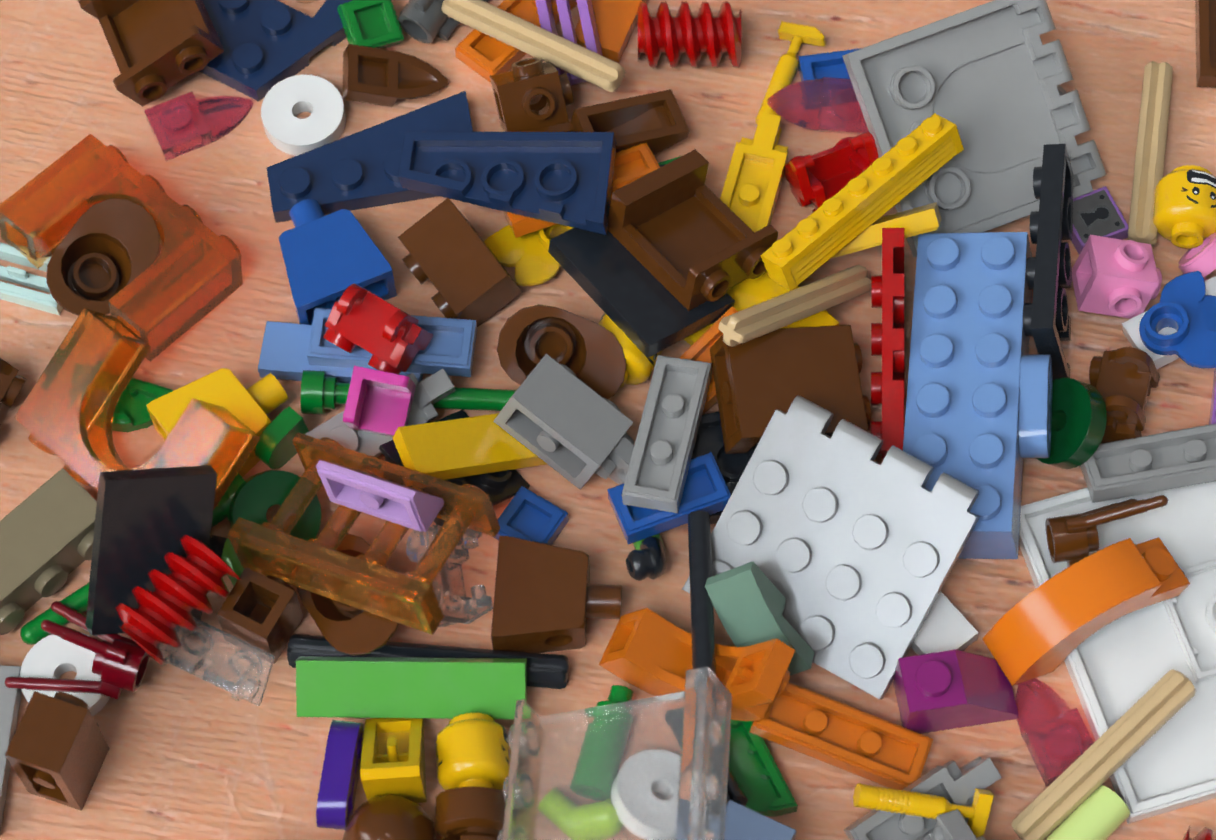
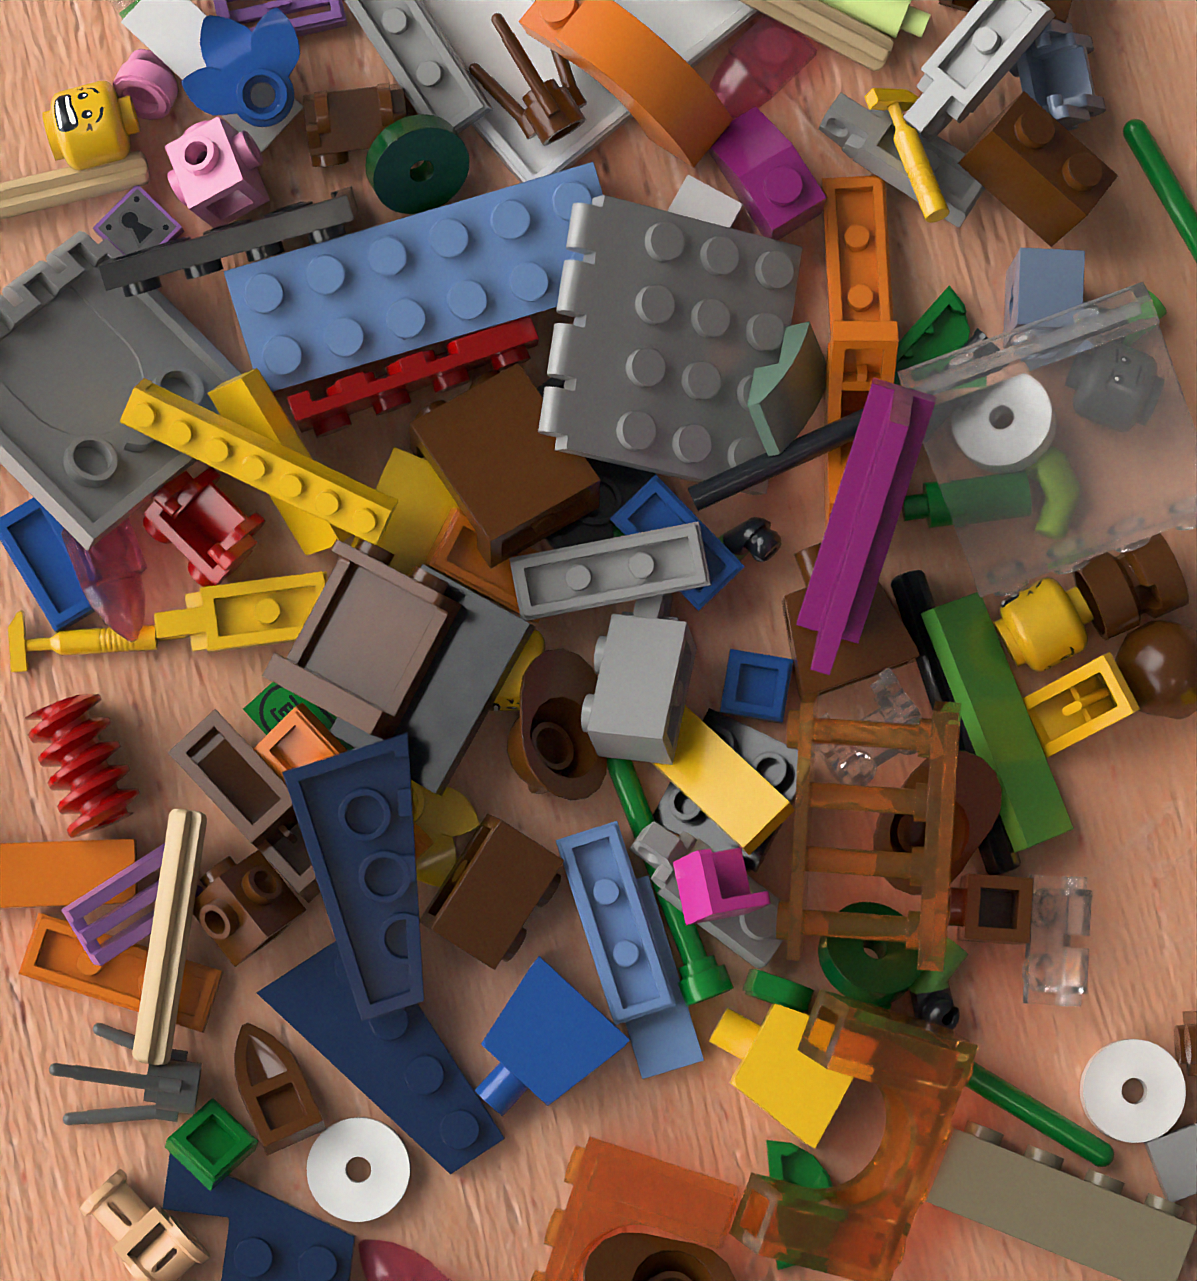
camera: 120 degrees left, 20 degrees up
(116, 659) = (1112, 1035): dark red plant -> none
(136, 525) = (993, 1044): black tile -> none
(175, 597) = (1040, 986): red piece -> none
(339, 775) = (1118, 751): dark purple beam -> none
(376, 327) = (632, 933): red piece -> none
(379, 496) = (834, 823): lavender slope -> none
(611, 593) = (864, 517): none -> magenta fence
(794, 305) = (418, 486): tan axle -> none
(1035, 406) = (422, 195): medium blue beam -> none

